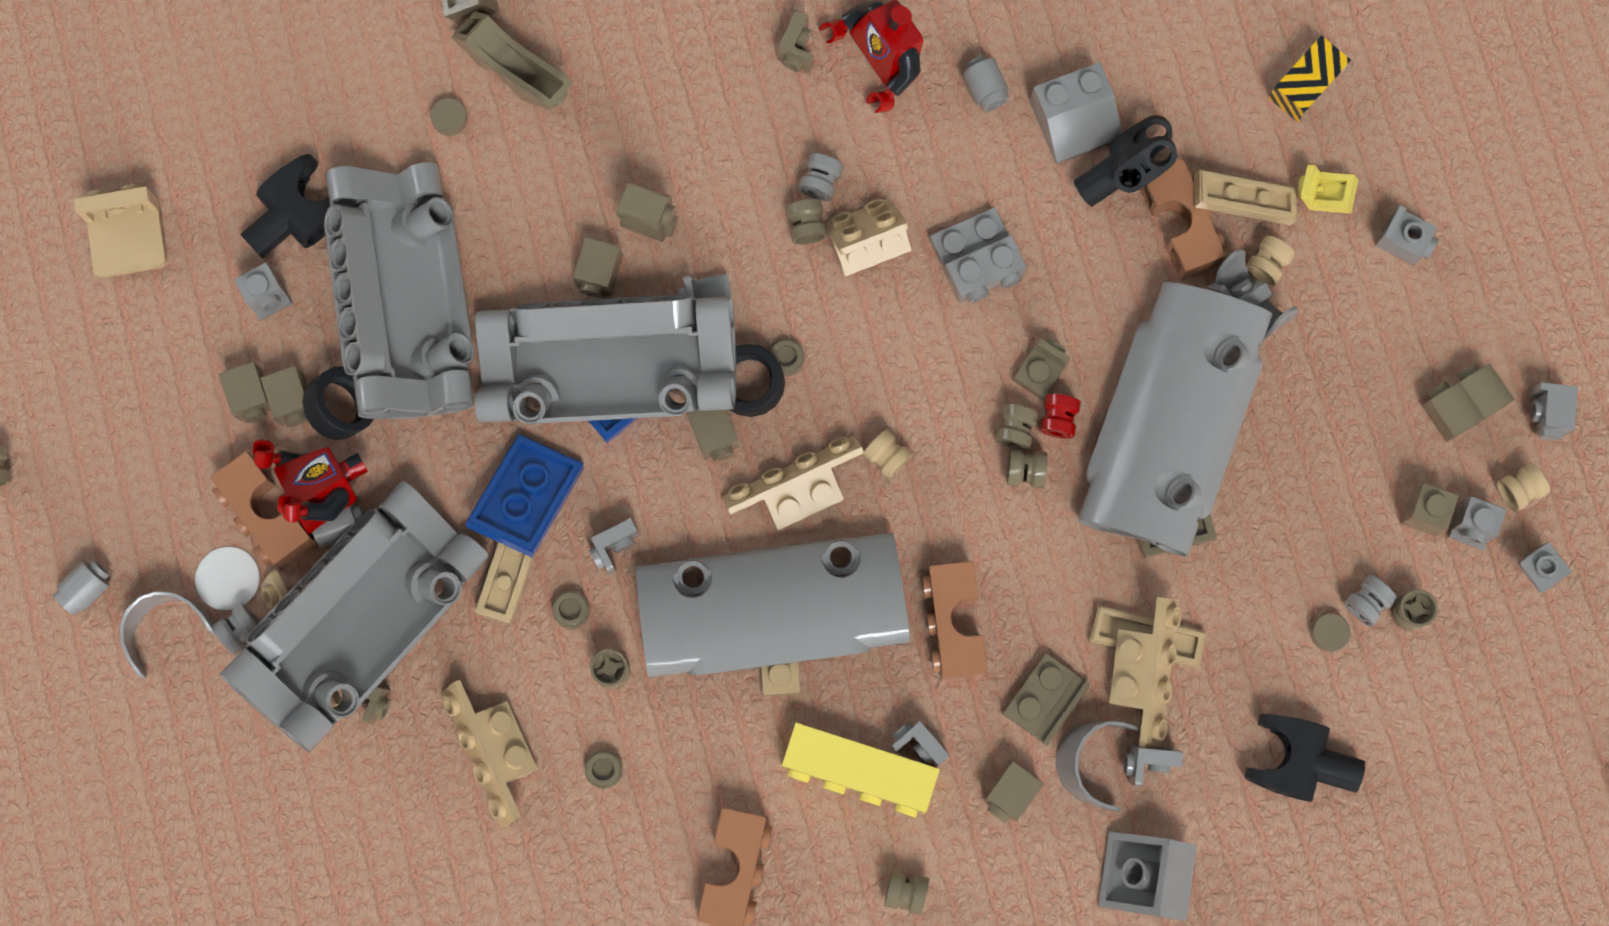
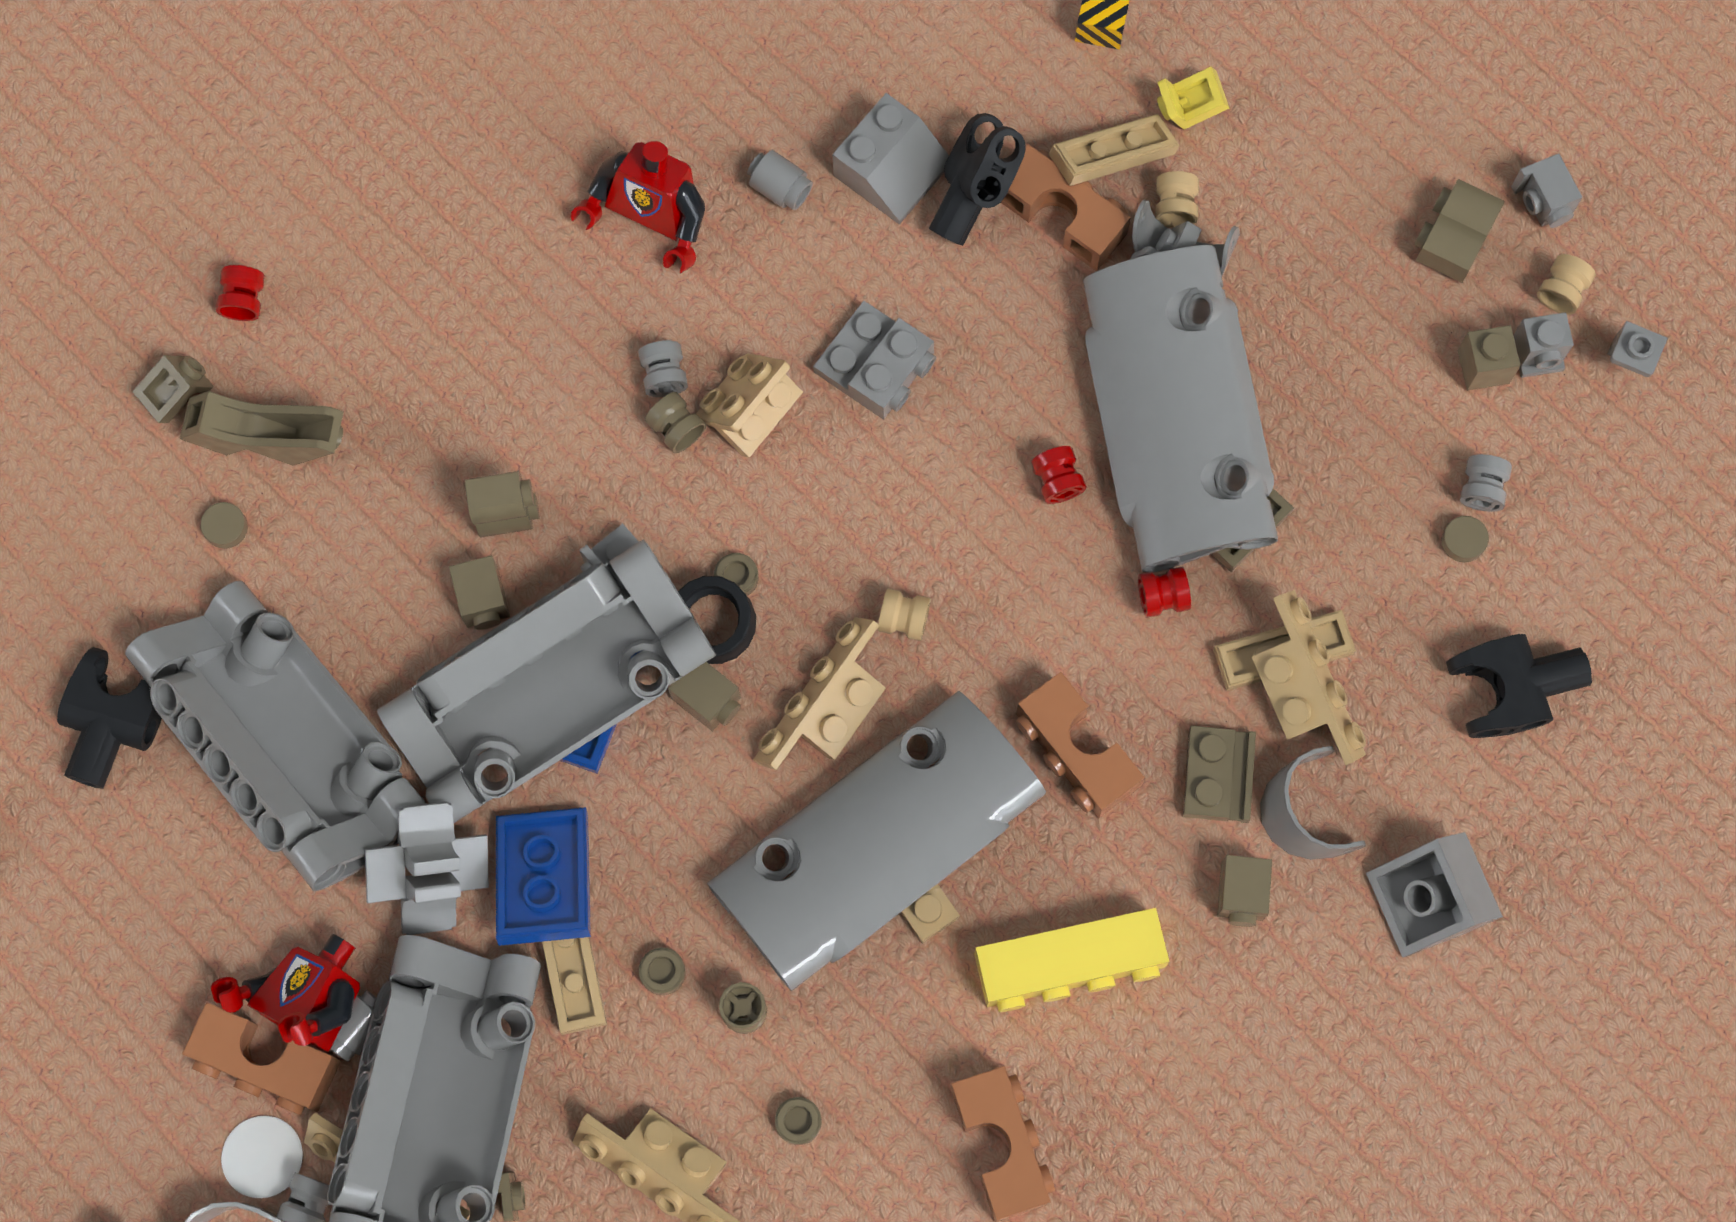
camera: 30 degrees left, 5 degrees down
(245, 392) = (170, 941): dark tan brick -> none
(263, 291) = (125, 821): light grey brick -> none
(285, 395) = (219, 919): dark tan brick -> none
(318, 413) = (265, 914): black tyre -> none
(455, 443) = (438, 866): none -> light grey piece
(618, 538) = (668, 865): light grey bracket -> none
(796, 37) = (554, 254): dark tan bracket -> none
(906, 892) = (1197, 1060): dark tan wheel -> none
(927, 746) = (1127, 894): light grey bracket -> none
(1017, 426) = (1021, 510): dark tan wheel -> none
(1027, 468) = (1057, 547): dark tan wheel -> none
(1042, 367) = (1010, 436): dark tan bracket -> none
(1085, 545) = (1164, 592): none -> red wheel
(1158, 760) = (1371, 768): light grey bracket -> none
(1397, 241) = (1289, 107): light grey brick -> none
(1420, 606) = (1540, 459): dark tan wheel -> none

